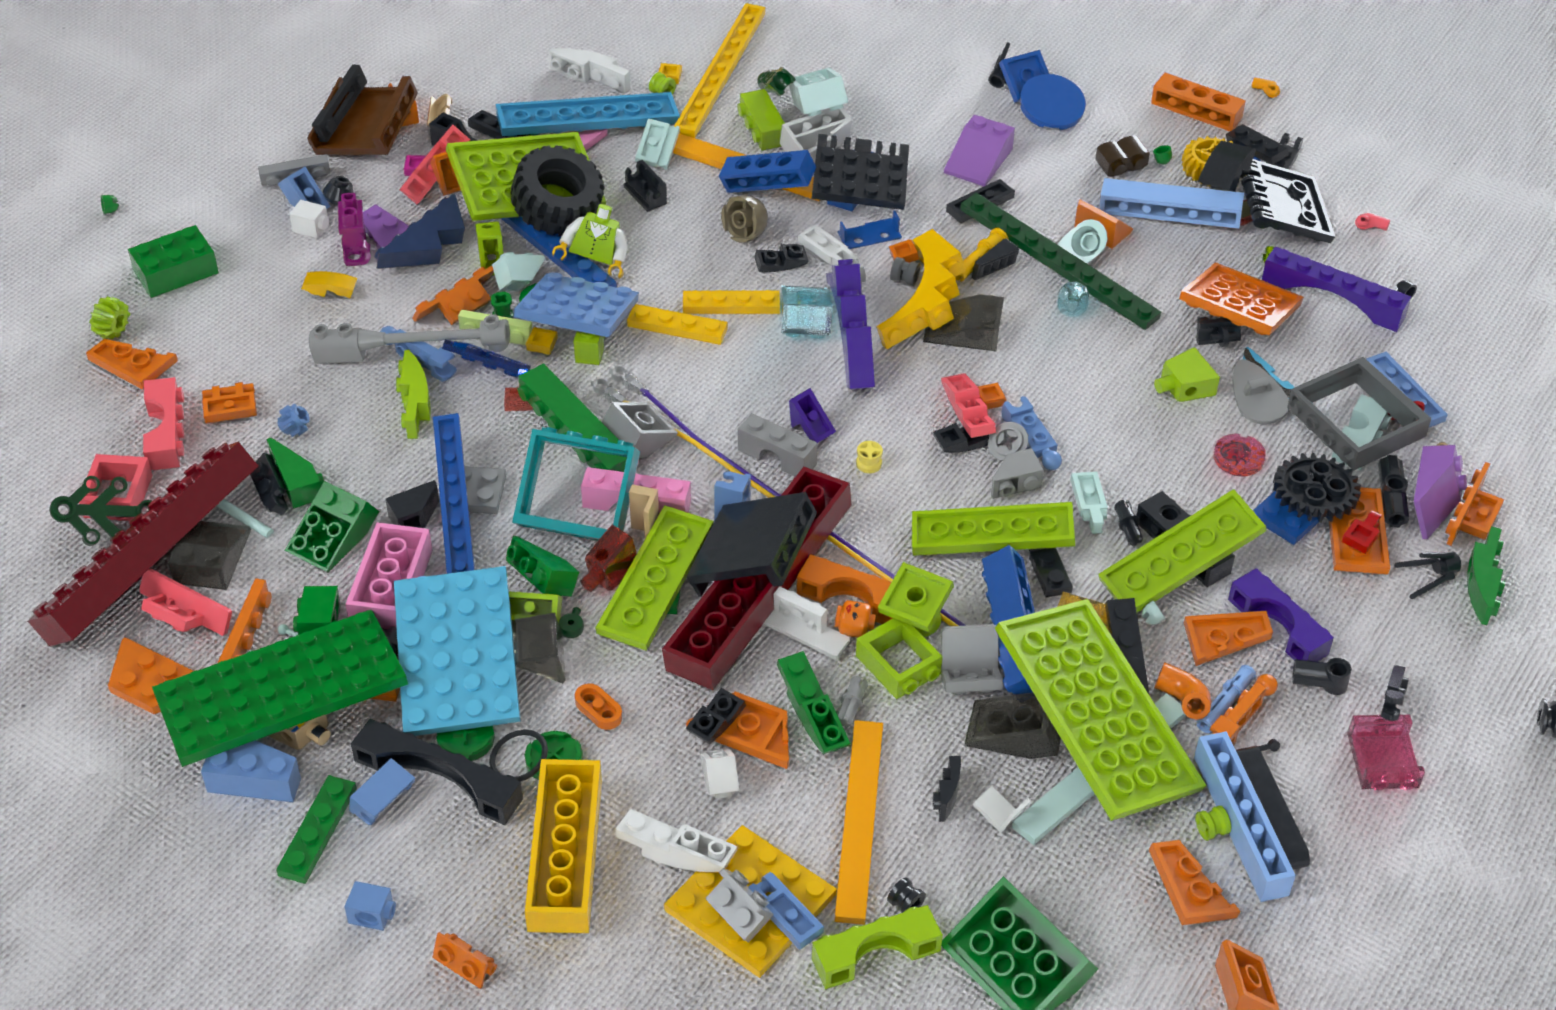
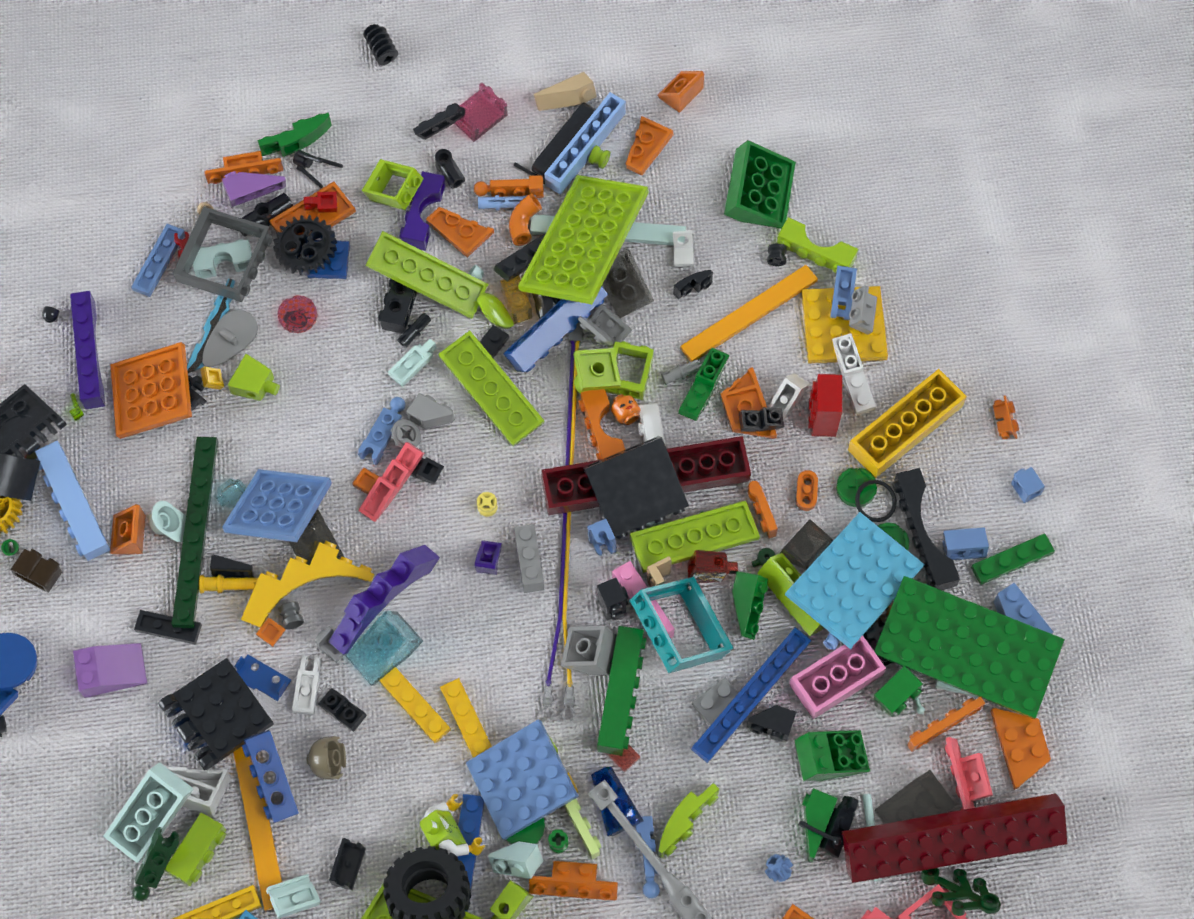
camera: 130 degrees left, 20 degrees up
(300, 447) = (836, 840): none -> black hinge
(621, 653) = (762, 508): none -> orange hinge
(662, 767) = (825, 405): none -> red brick
(664, 459) = (612, 599): none -> black brick
(1020, 302) = (277, 505): none -> medium blue plate
(1093, 588) = (495, 310): none -> lime arm
(1218, 352) = (212, 378): none -> yellow tile
(1314, 595) = (384, 171): none -> lime window
(1338, 859) = (566, 93): none -> tan slope

